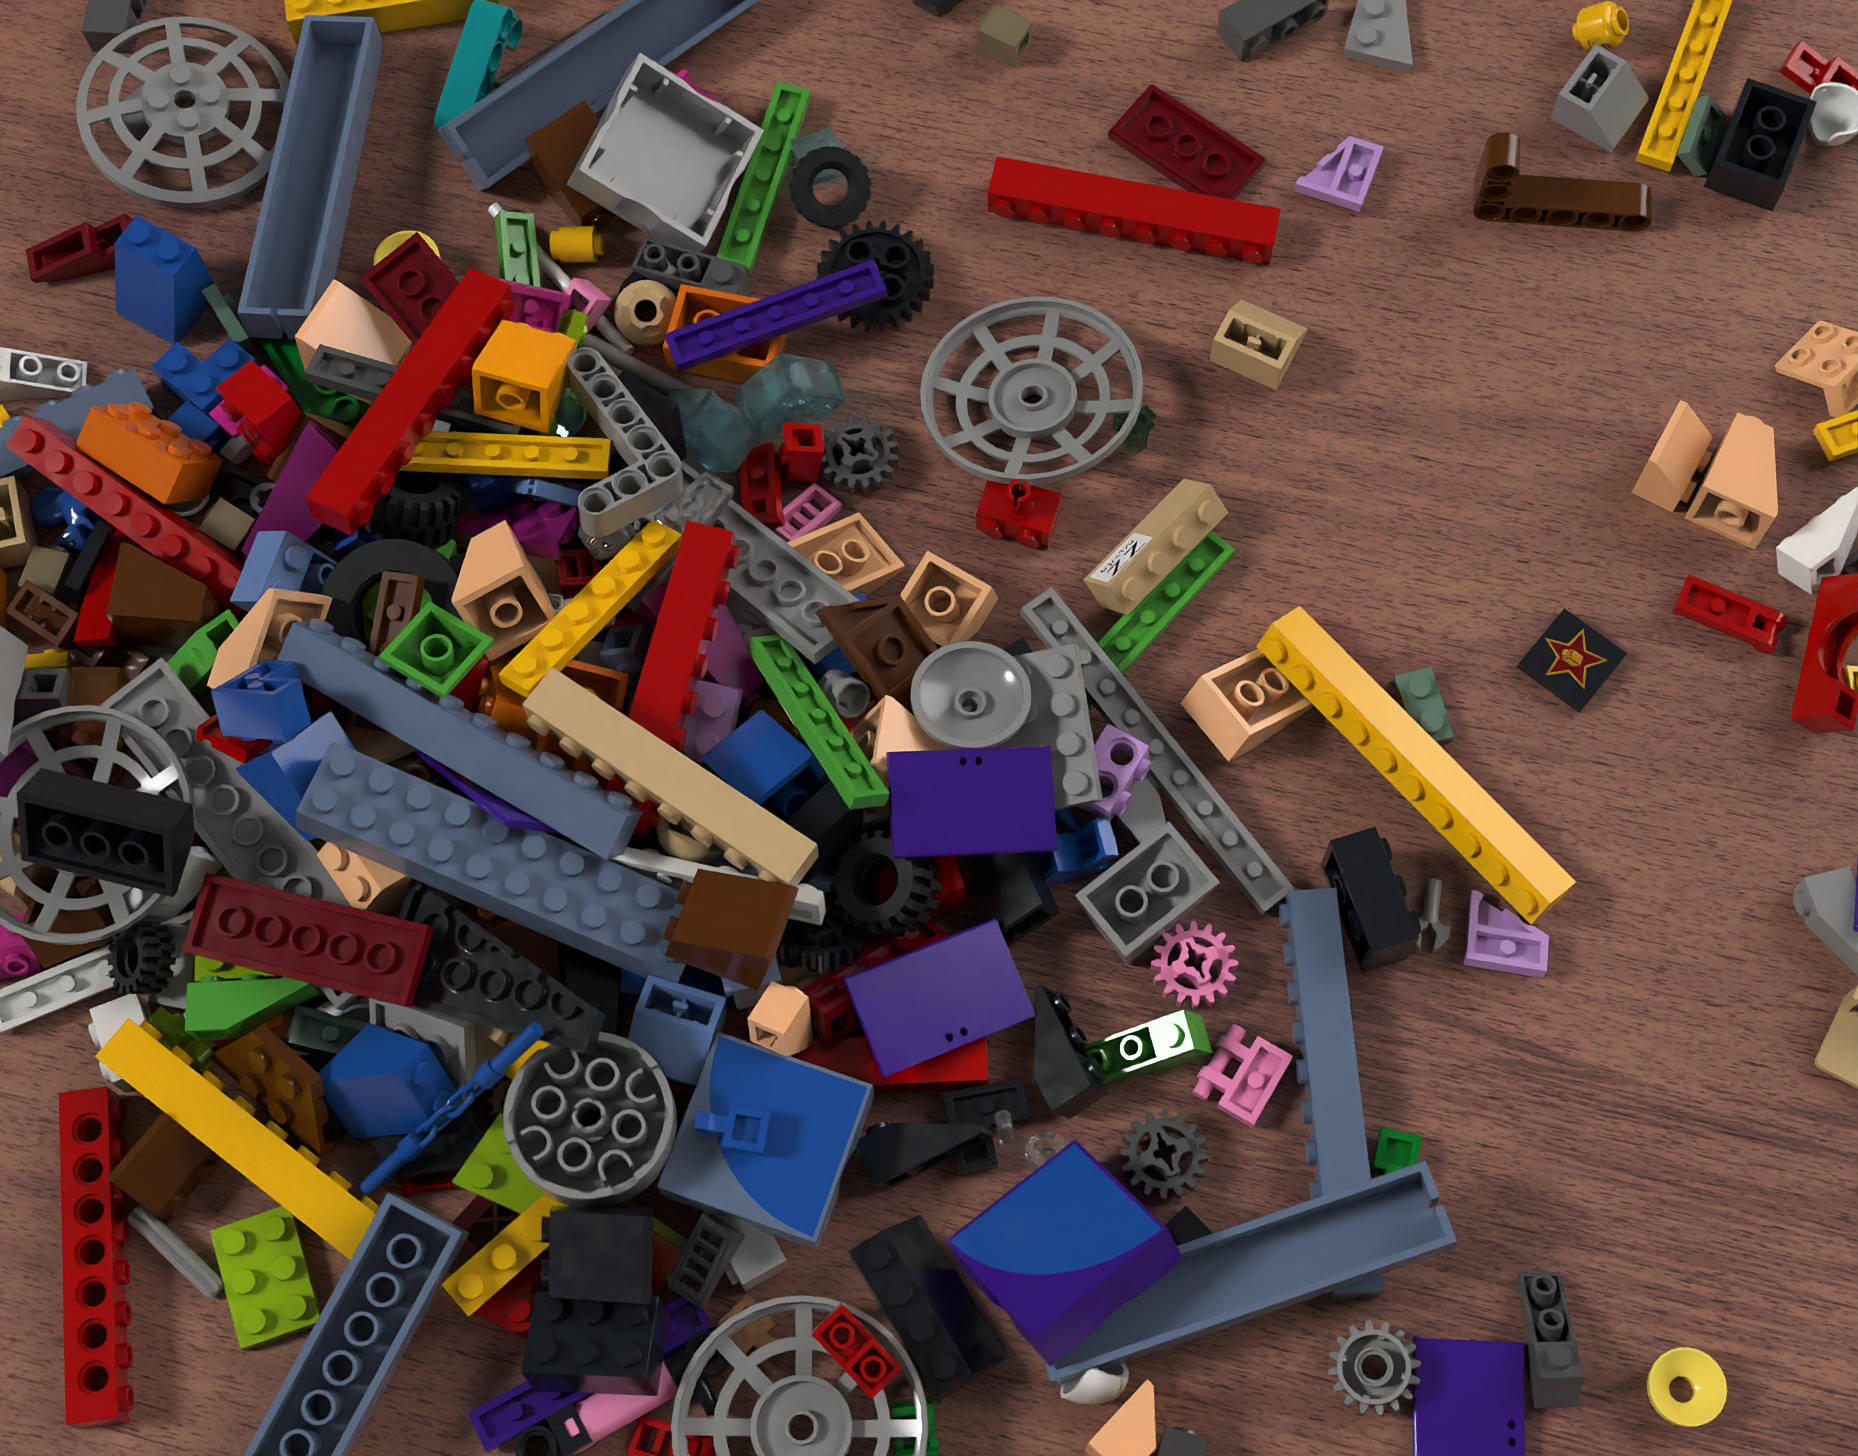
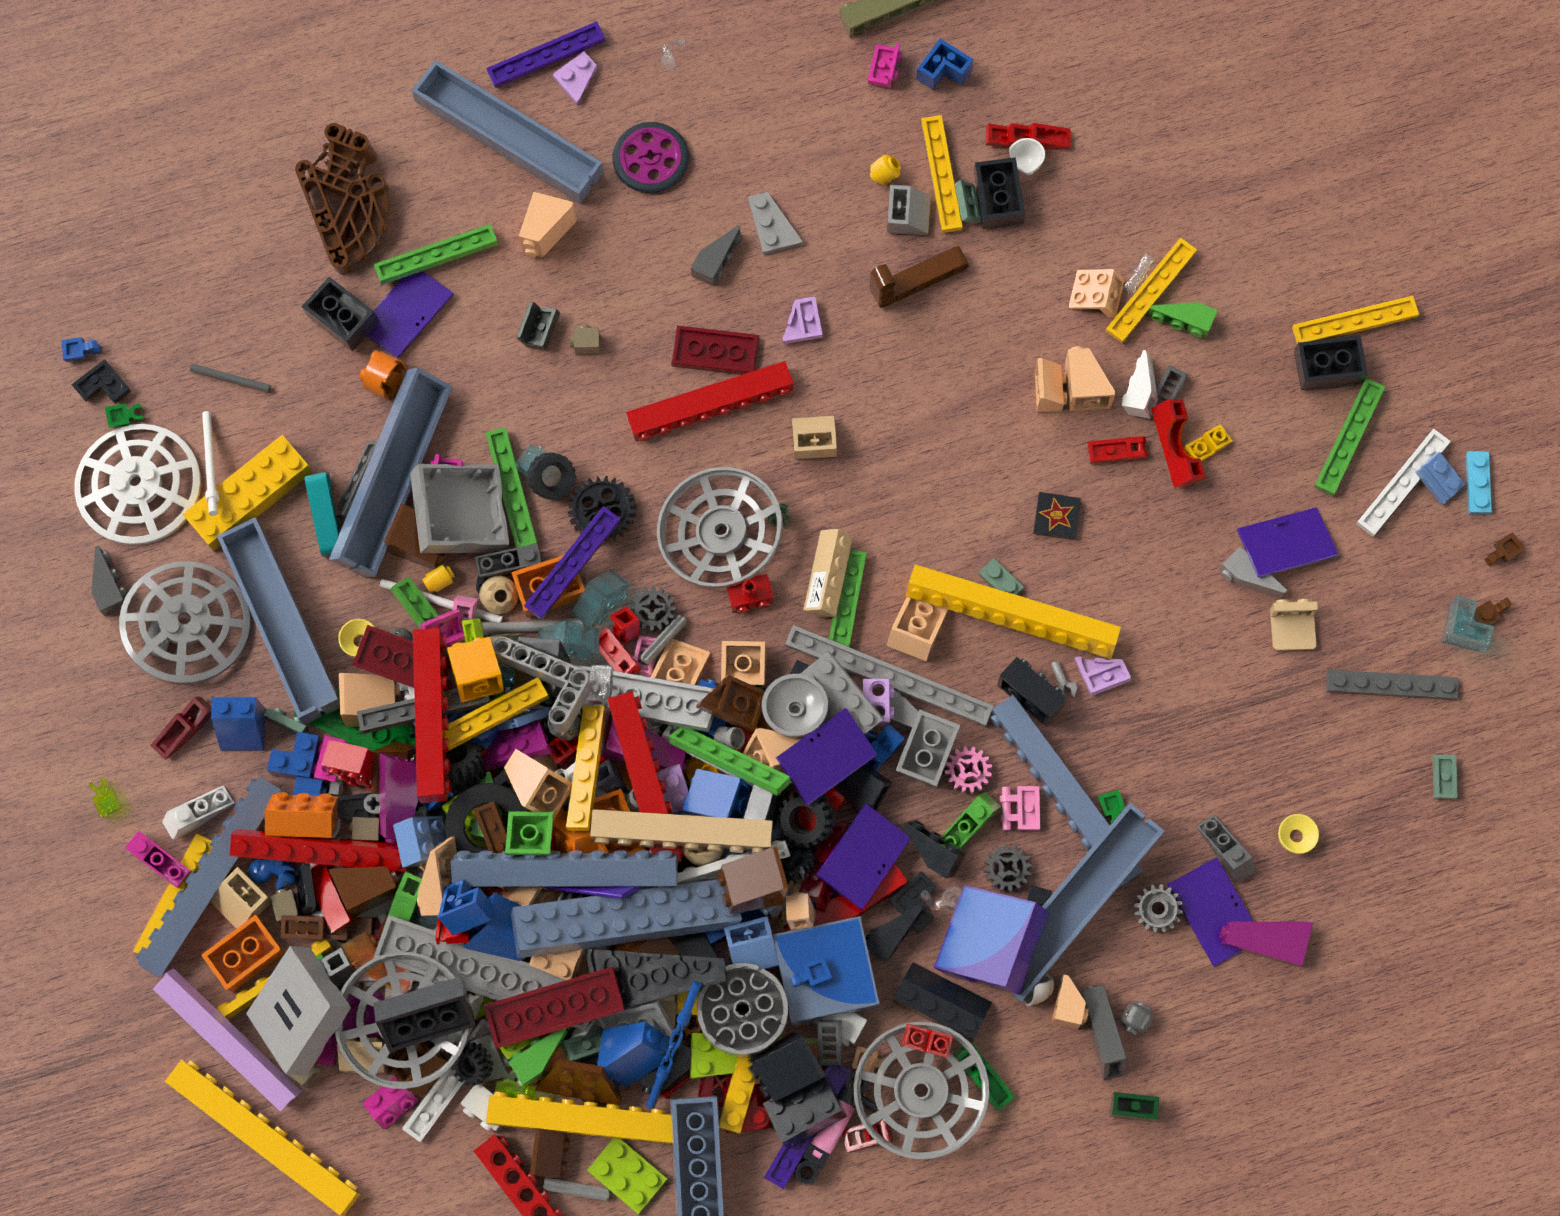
camera: 30 degrees left, 5 degrees up
(844, 506) = (663, 639): none -> light grey axle

